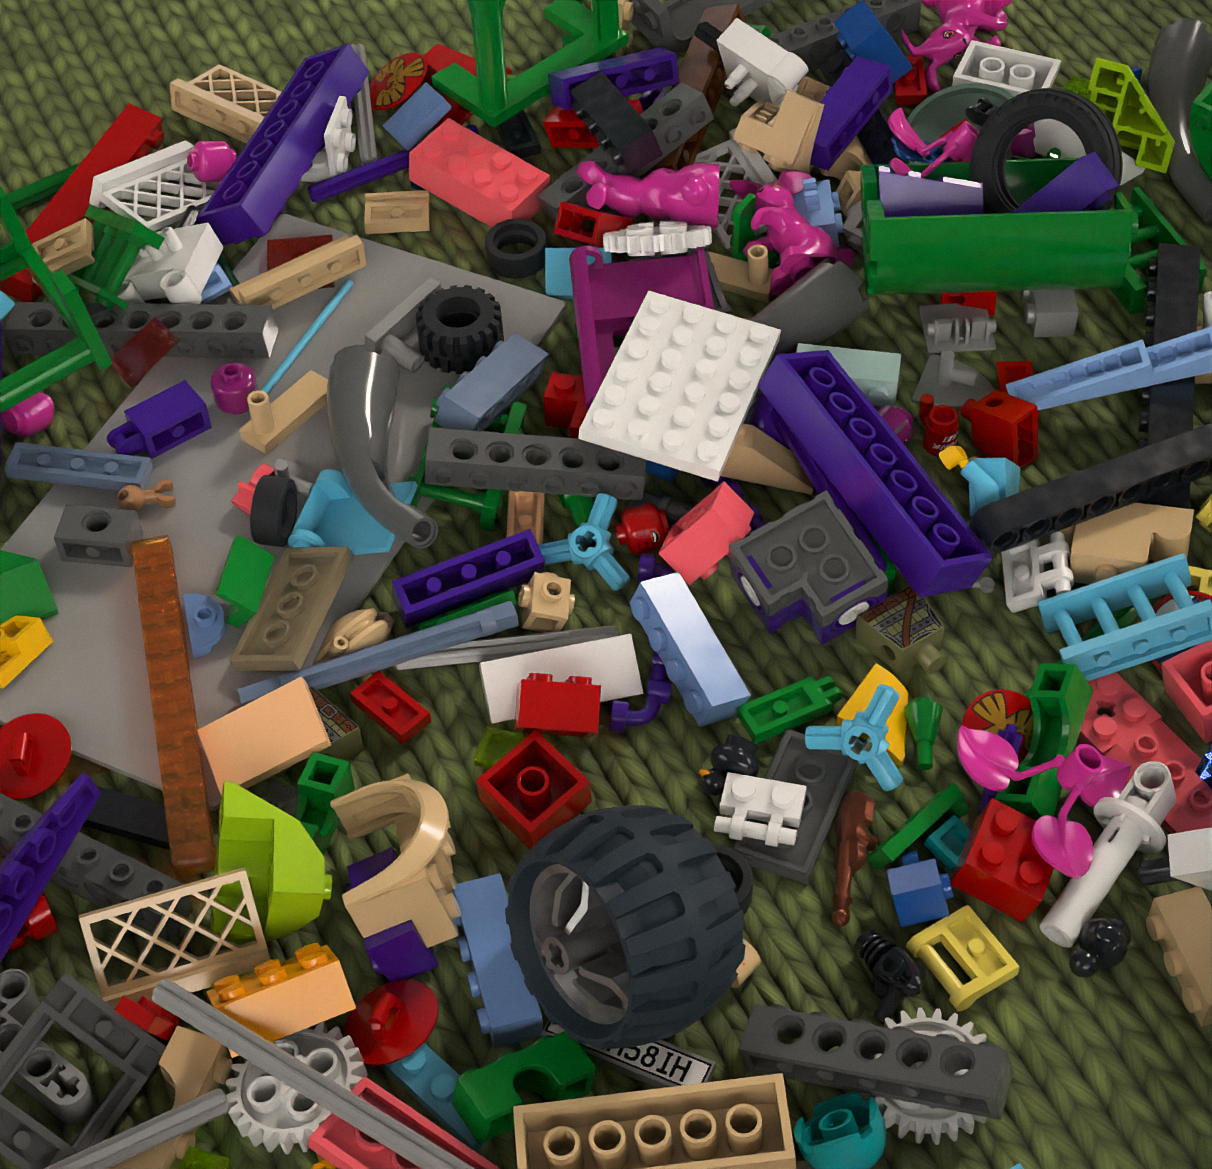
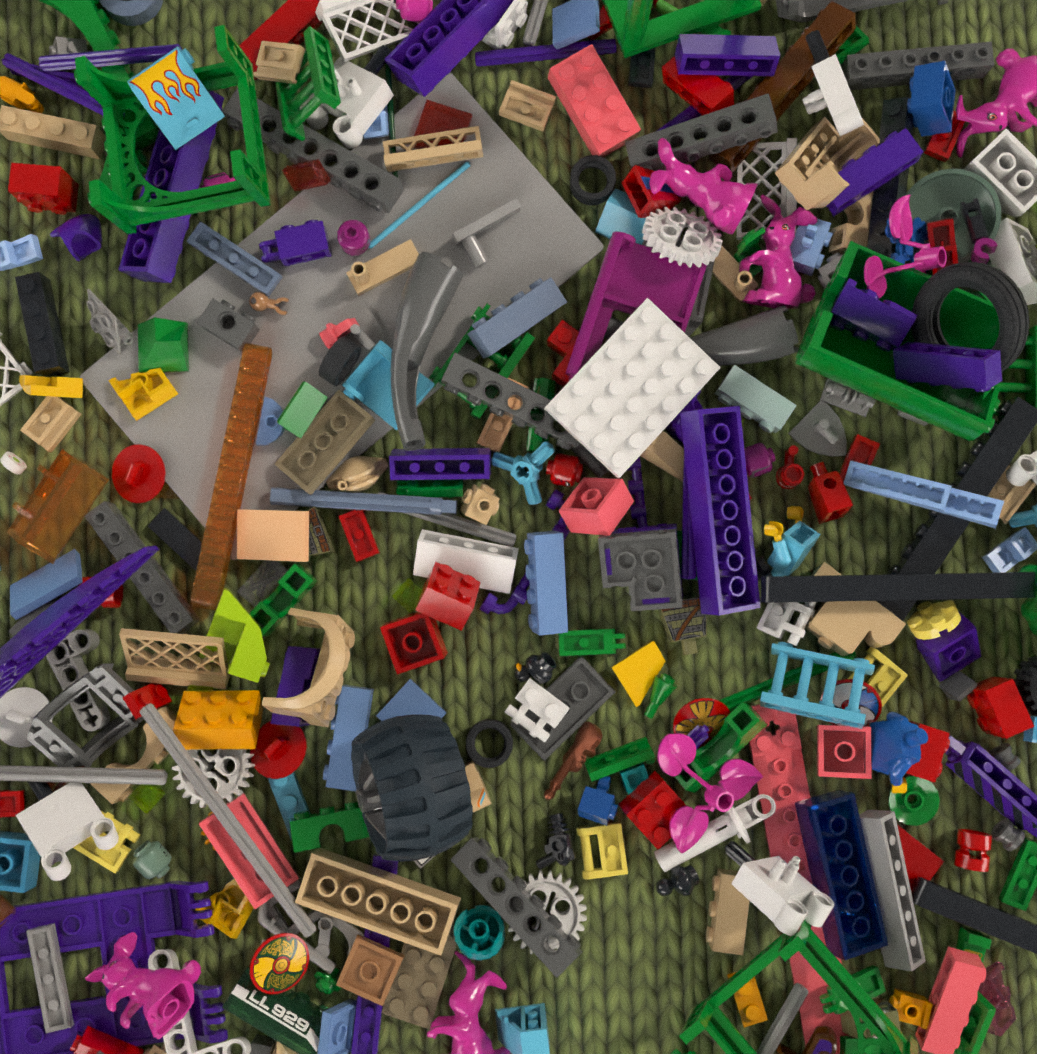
camera: 20 degrees right, 35 degrees up
(458, 327) = (519, 231): black tyre -> none
(614, 123) = (701, 113): black brick -> none
(872, 723) = (616, 693): medium azure bush -> none

